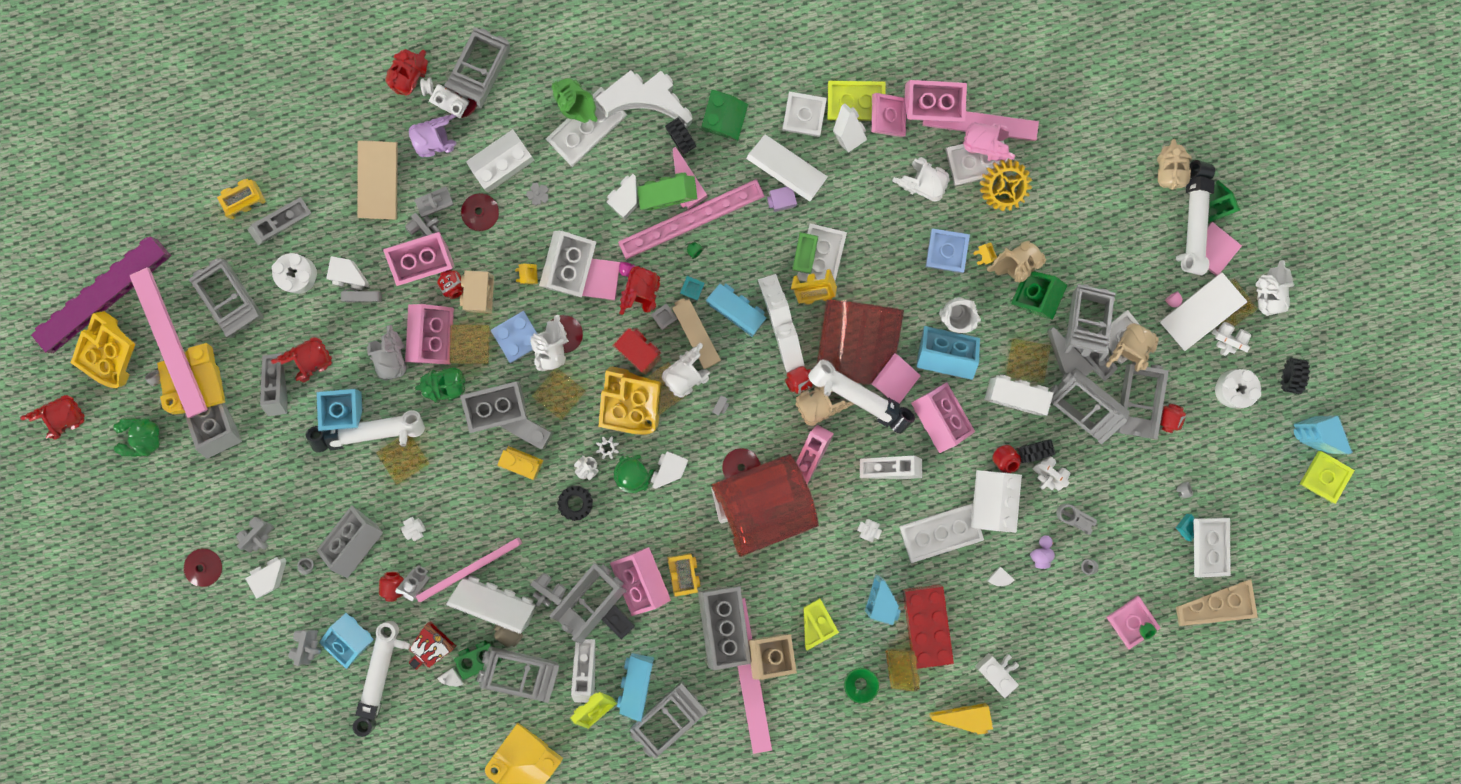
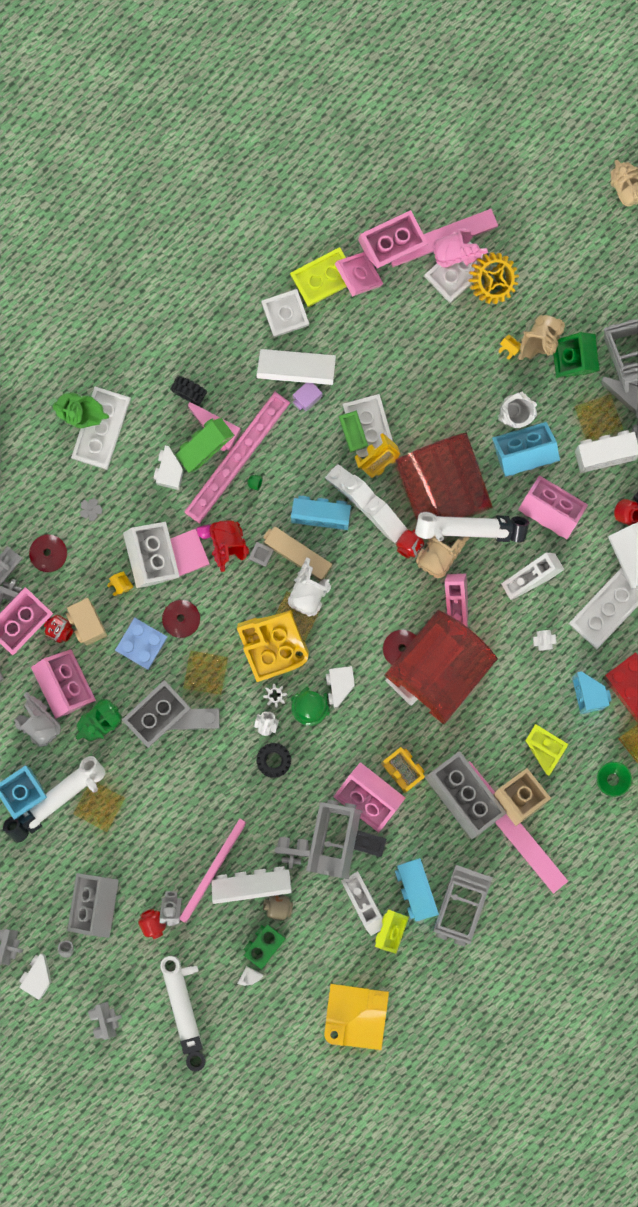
camera: 25 degrees left, 5 degrees down
(346, 640) = (138, 995): medium azure slope -> none
(413, 529) = (143, 862): white gear -> none
(430, 646) = (216, 958): torso -> none
(469, 344) = (103, 672): clear yellow tile -> none
(500, 161) = (41, 498): white slope -> none
(520, 462) = (206, 751): yellow window -> none
(544, 680) = (334, 932): light grey door -> none
(549, 346) = (175, 633): white helmet -> none
(631, 94) = (126, 377): white arch -> none
(639, 353) = (256, 593): red brick -> none
(692, 288) = (271, 516): teal plate -> none
(721, 406) = (354, 604): light grey plate -> none
(724, 115) = (216, 352): green slope -> none
(848, 128) = (331, 305): white slope -> none
(896, 379) = (493, 496): bright pink tile -> none
(927, 182) = (424, 312): white helmet -> none
(947, 250) = (475, 362): light blue plate -> none

